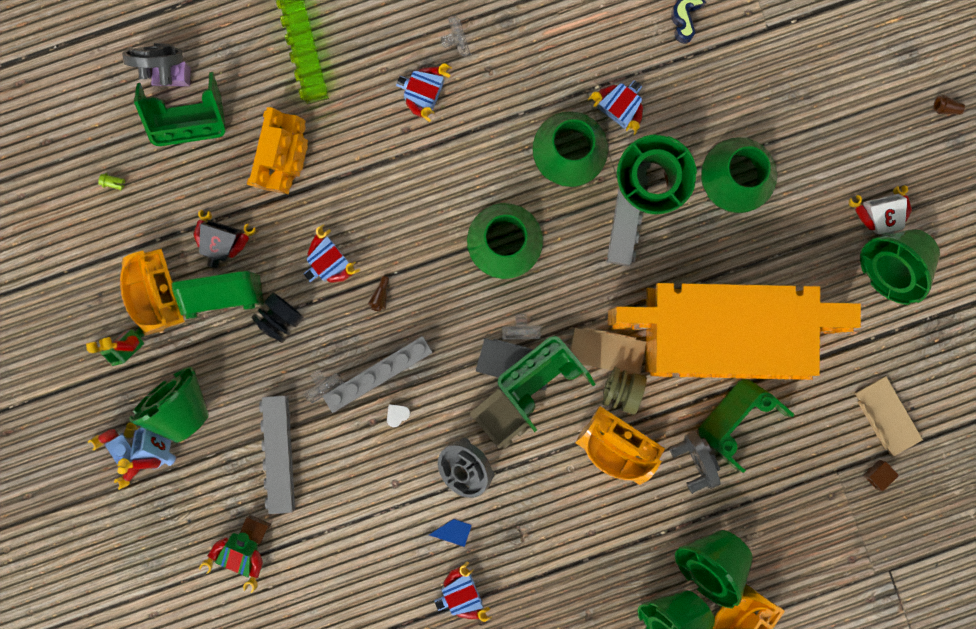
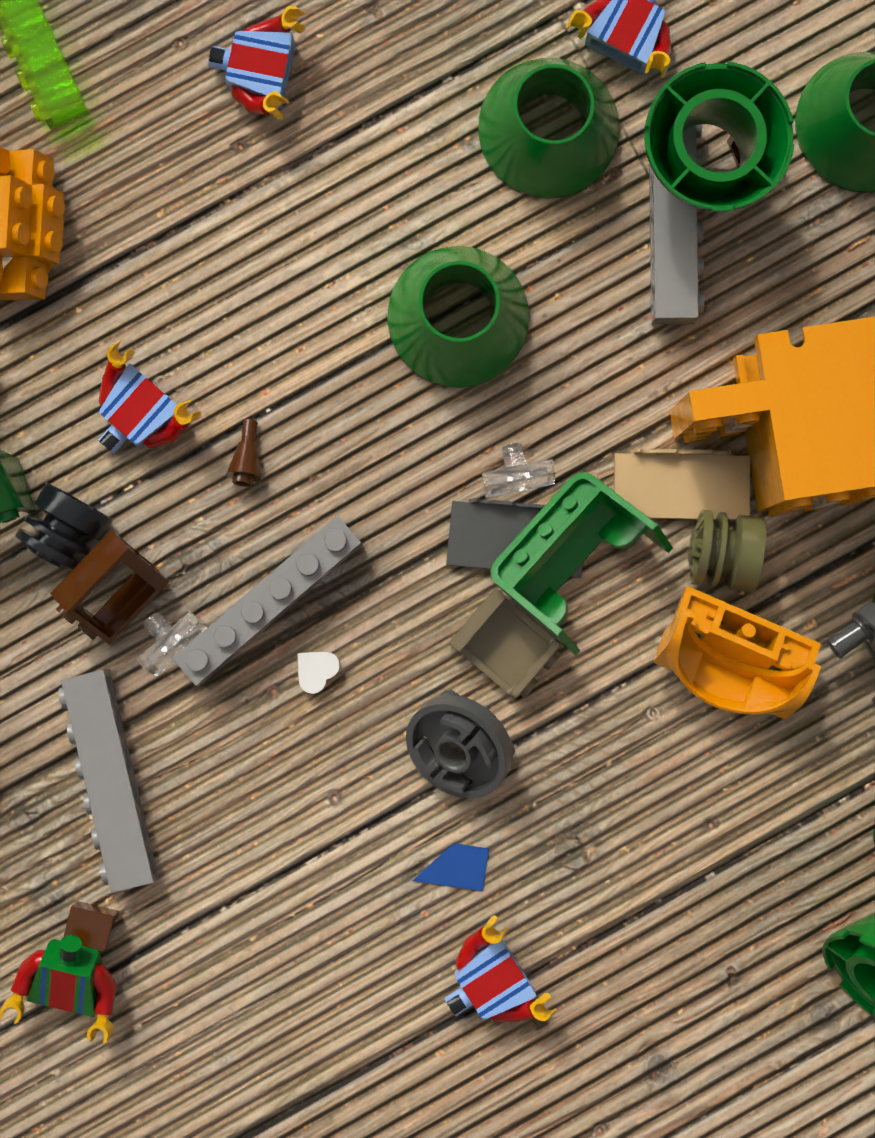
camera: 10 degrees left, 0 degrees up
(302, 362) = (124, 604): none -> reddish brown window

